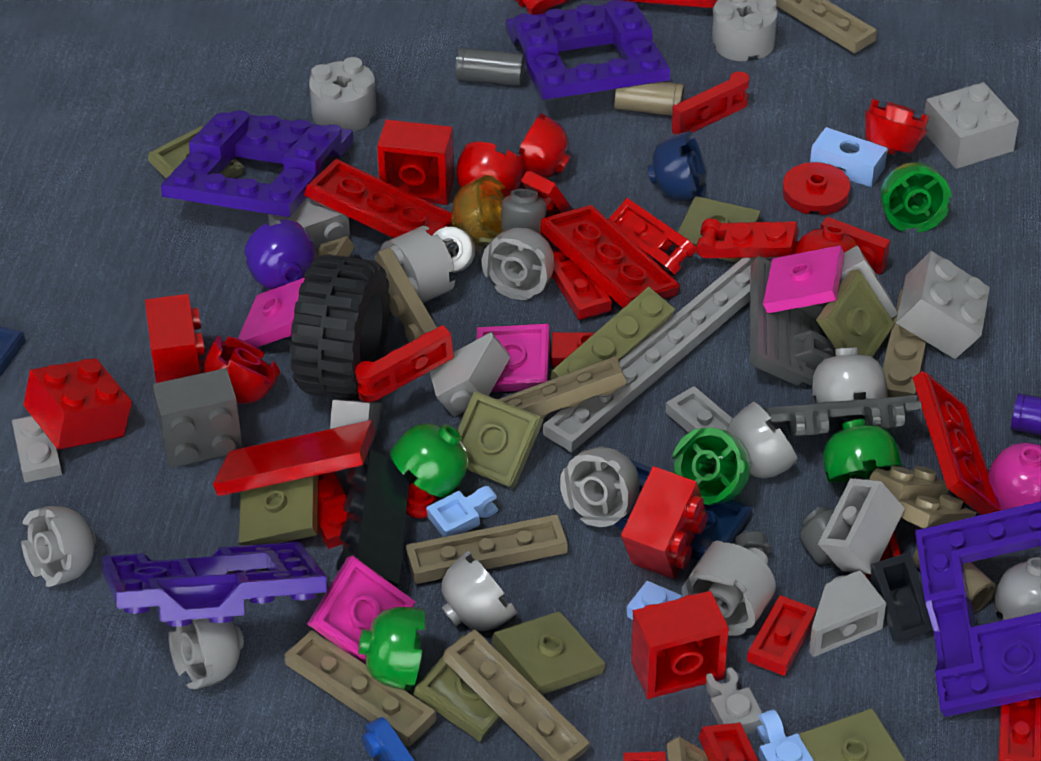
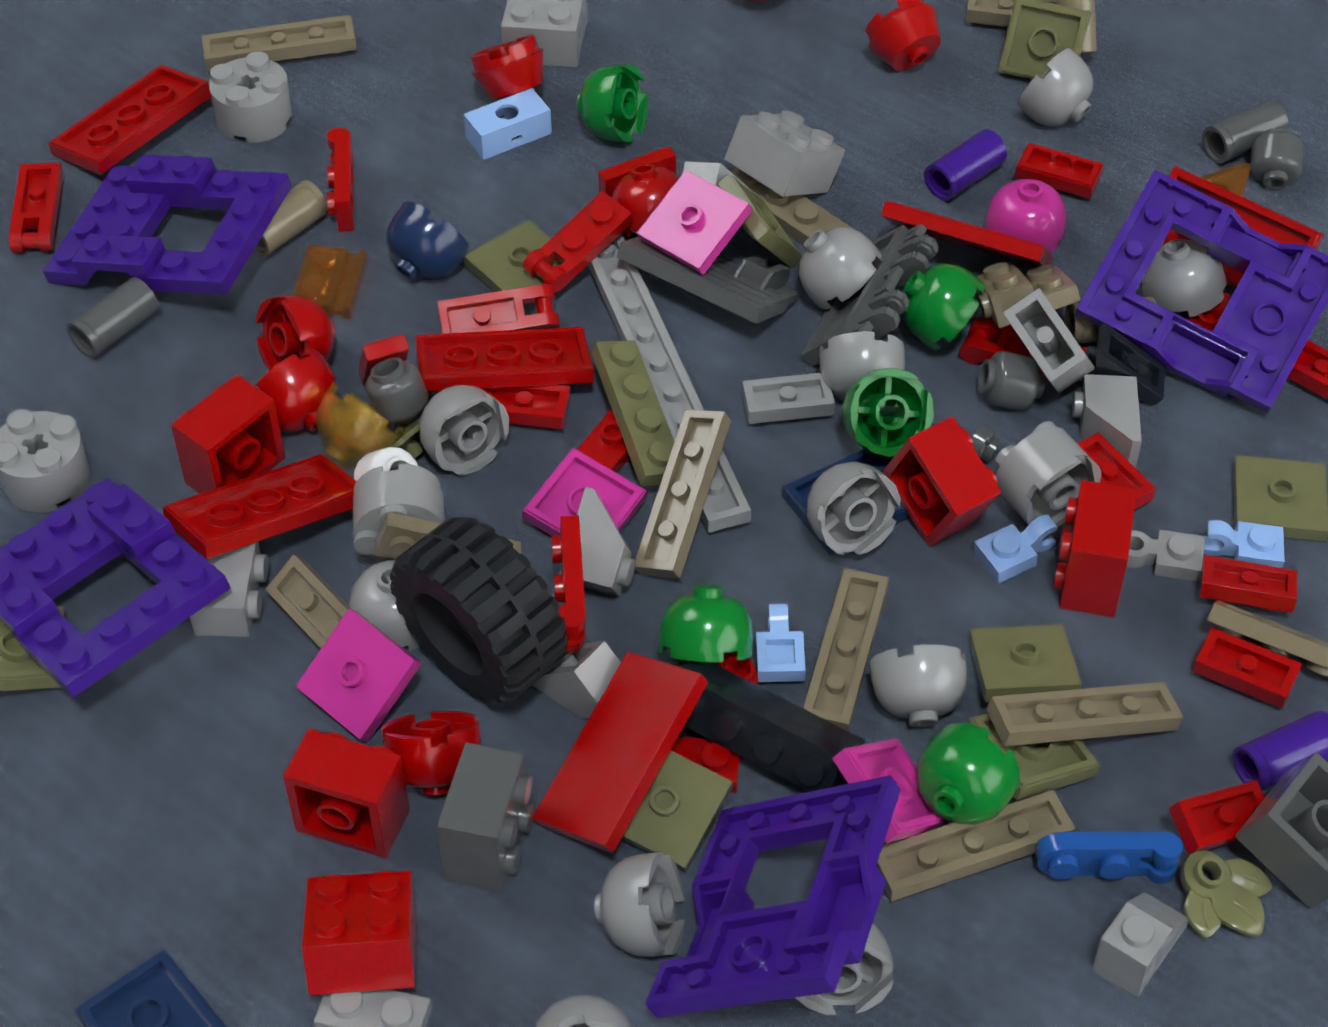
camera: 60 degrees left, 5 degrees up
(186, 526) = (640, 905): none -> light grey cylinder
(279, 253) = (284, 627): dark purple cylinder -> none
(497, 438) = (706, 554): olive plate -> none
(615, 147) = (332, 278): none -> clear orange plate
(816, 188) = (525, 168): red plate -> none

